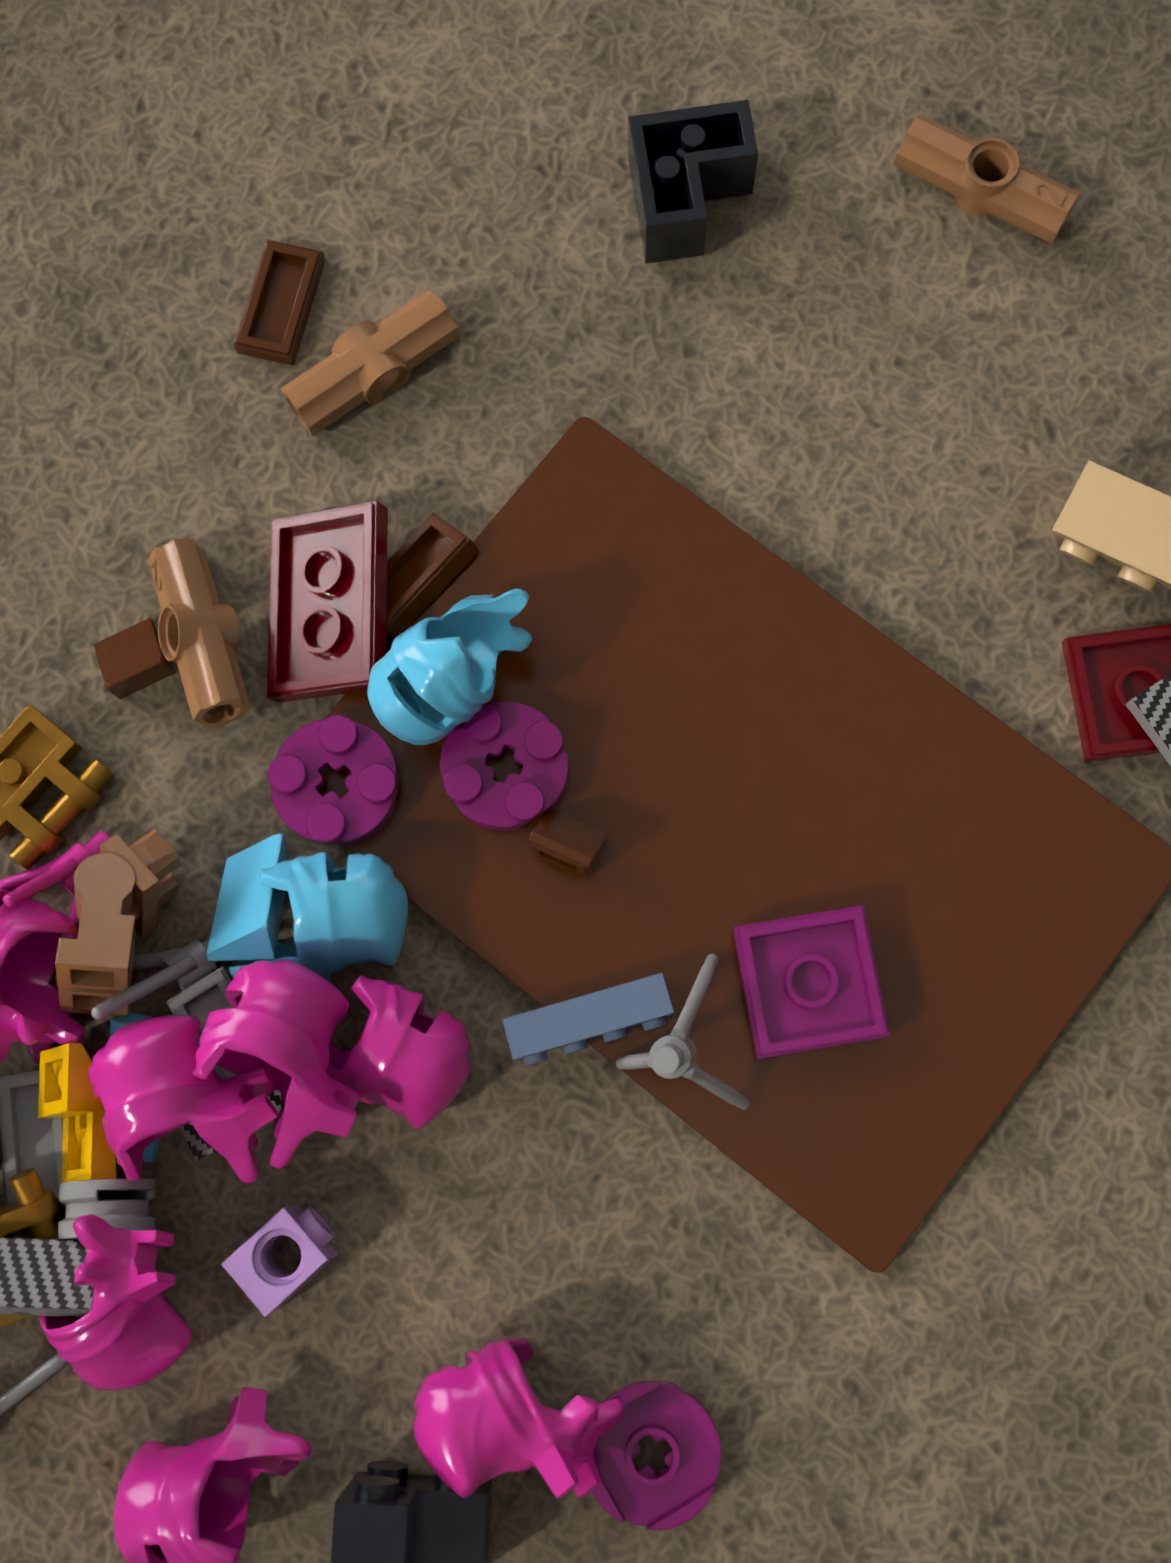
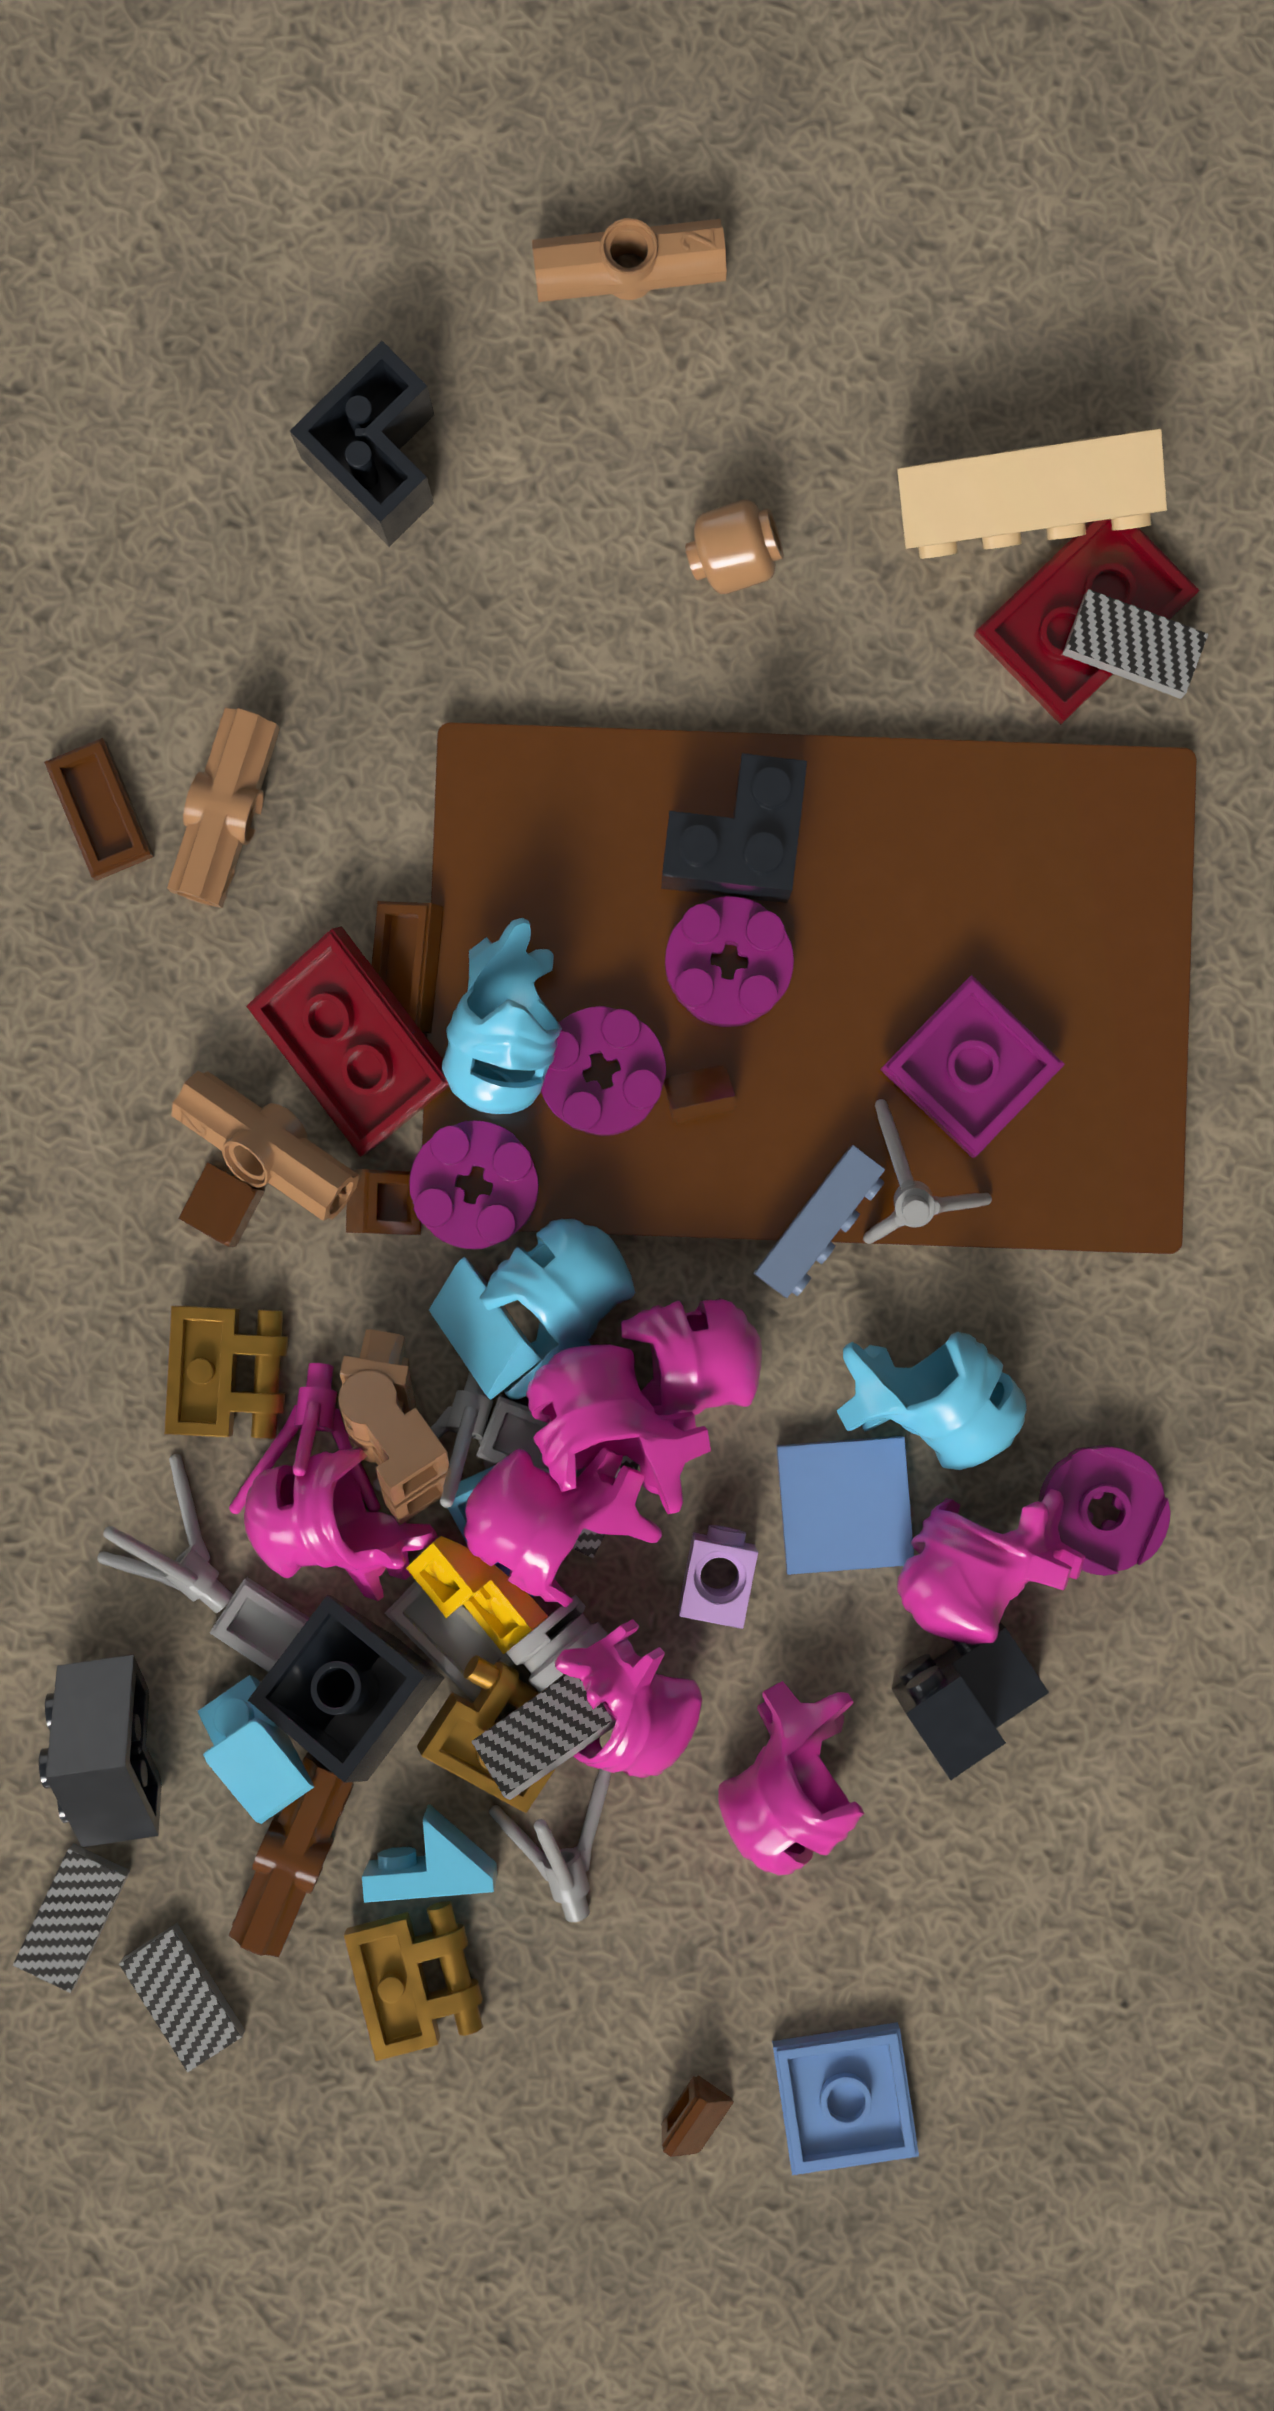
camera: 40 degrees left, 10 degrees up
(253, 745) = (382, 1204): none -> reddish brown slope
(436, 1277) = (845, 1504): none -> medium blue tile
(587, 1251) = (949, 1399): none -> medium azure piece
(672, 716) = (758, 938): none -> magenta plate
(749, 673) = (746, 853): none -> black brick
(914, 439) = (735, 547): none -> medium nougat head

